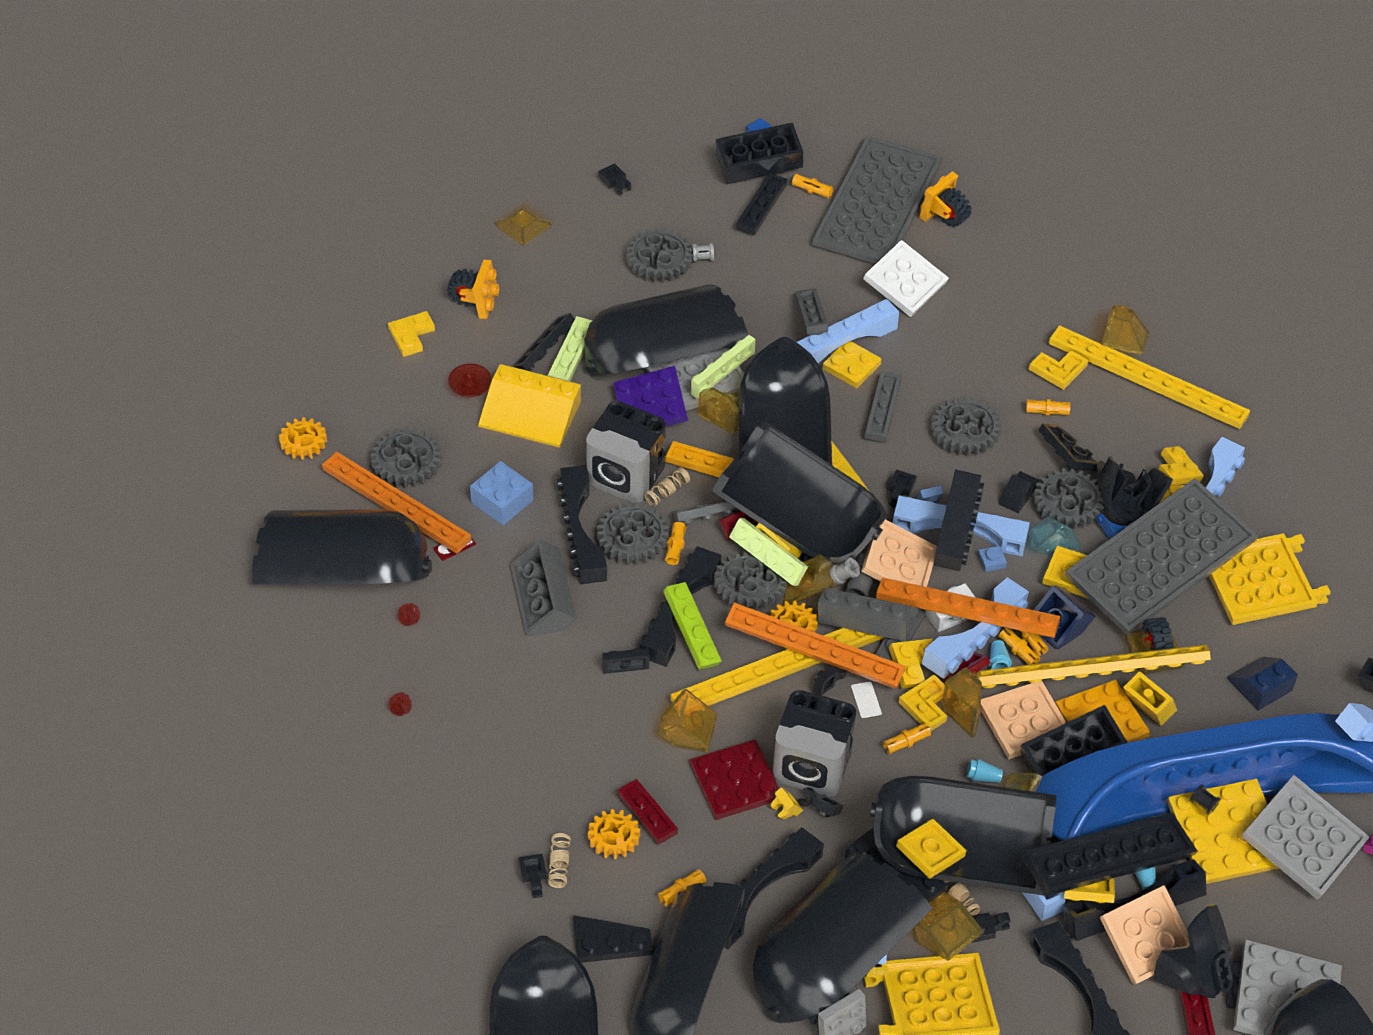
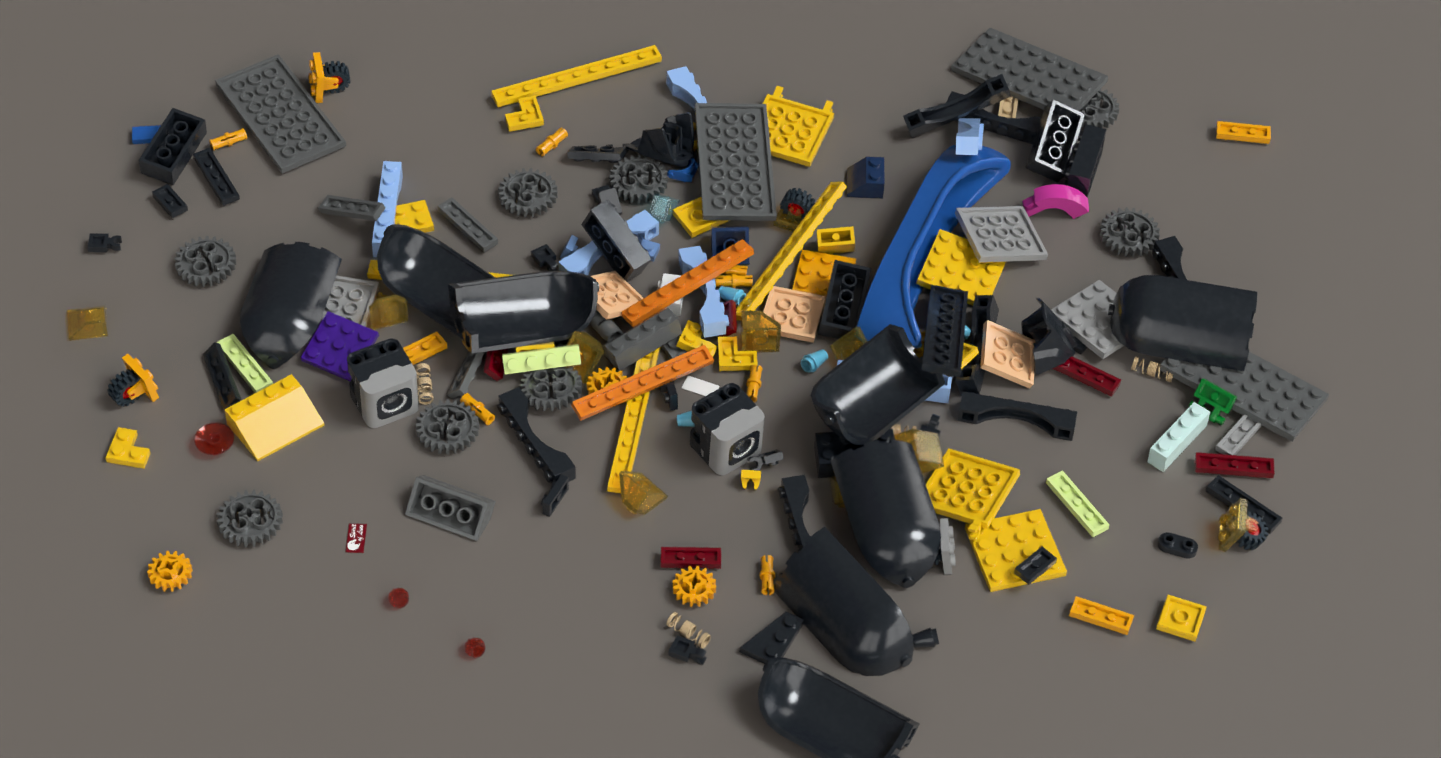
camera: 55 degrees left, 0 degrees up
(339, 548) = (304, 604): black panel -> none
(395, 500) = (286, 548): orange plate -> none
(501, 493) = (340, 480): medium blue brick -> none
(589, 557) = (445, 464): black arch -> none
(692, 626) = (563, 439): lime plate -> none
(703, 191) = (169, 201): none -> black plate
(708, 249) = (228, 235): light grey bush -> none
(723, 366) = (353, 291): yellowish green plate -> none
(735, 779) = (704, 495): dark red plate -> none
(841, 572) = (596, 328): light grey bush -> none
(906, 278) = (369, 141): white plate -> none
(931, 848) = (868, 415): yellow plate -> none
(1125, 331) = (529, 62): clear yellow slope -> none
(1179, 466) = (664, 107): yellow plate -> none
(1205, 799) = (940, 260): black bush -> none

